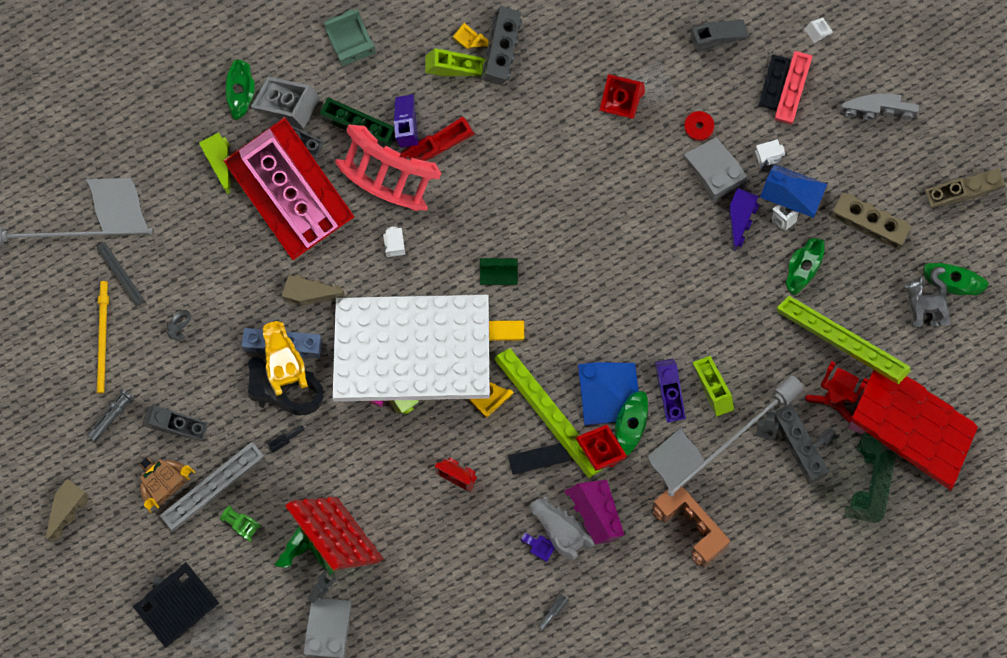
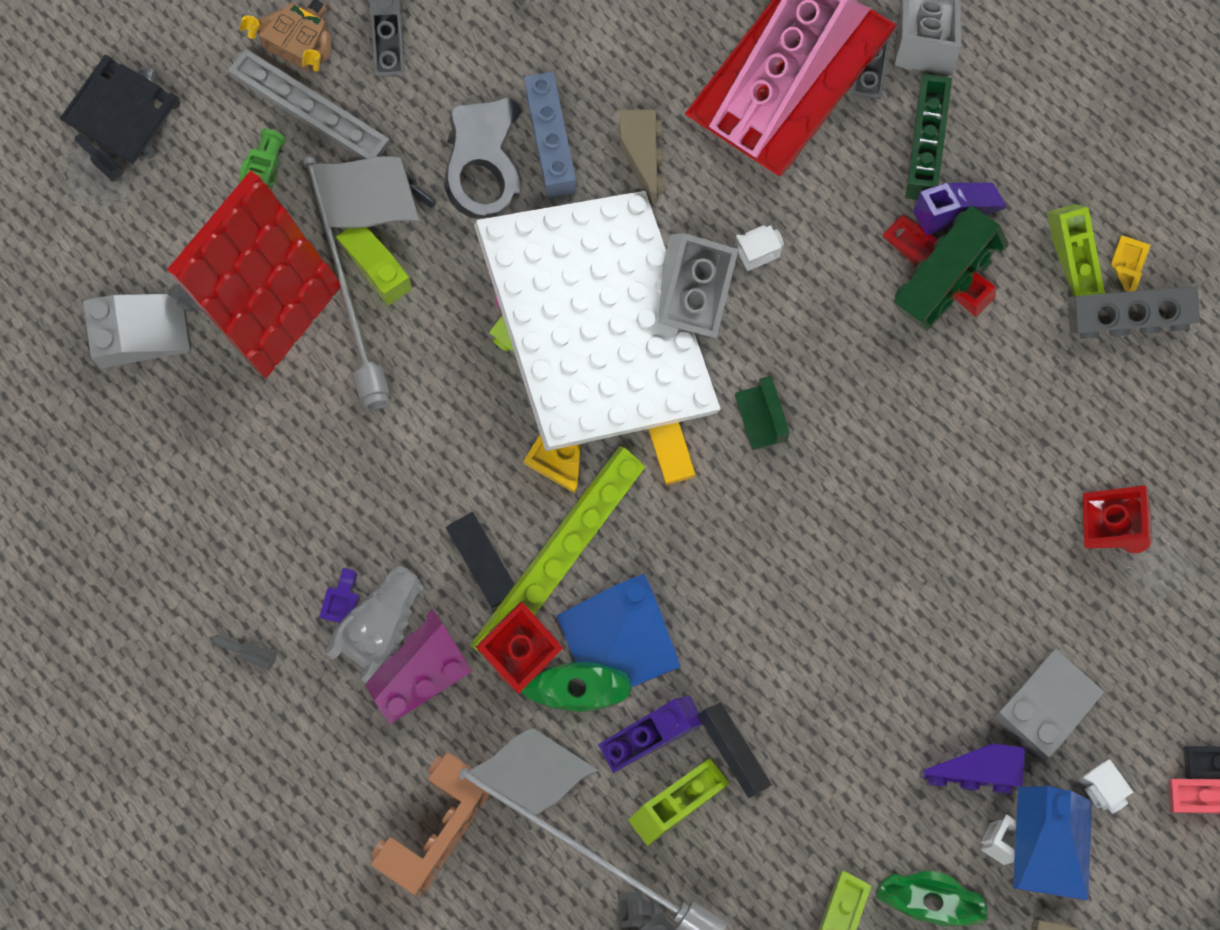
camera: 70 degrees right, 0 degrees up
(207, 624) = (101, 159): none -> black axle
(282, 359) = (519, 134): yellow animal -> none
(285, 468) = (360, 197): none -> light grey flag
(329, 472) = (375, 263): none -> lime slope
(349, 37) = (1064, 88): sand green panel -> none
(362, 137) = (880, 191): coral fence -> none
(408, 284) = (695, 283): none -> light grey slope
(446, 137) = (950, 267): none -> dark green wedge
(456, 474) = (418, 440): red slope -> none
(692, 346) = (734, 750): none -> black tile
(695, 133) = (1127, 656): red piece -> none

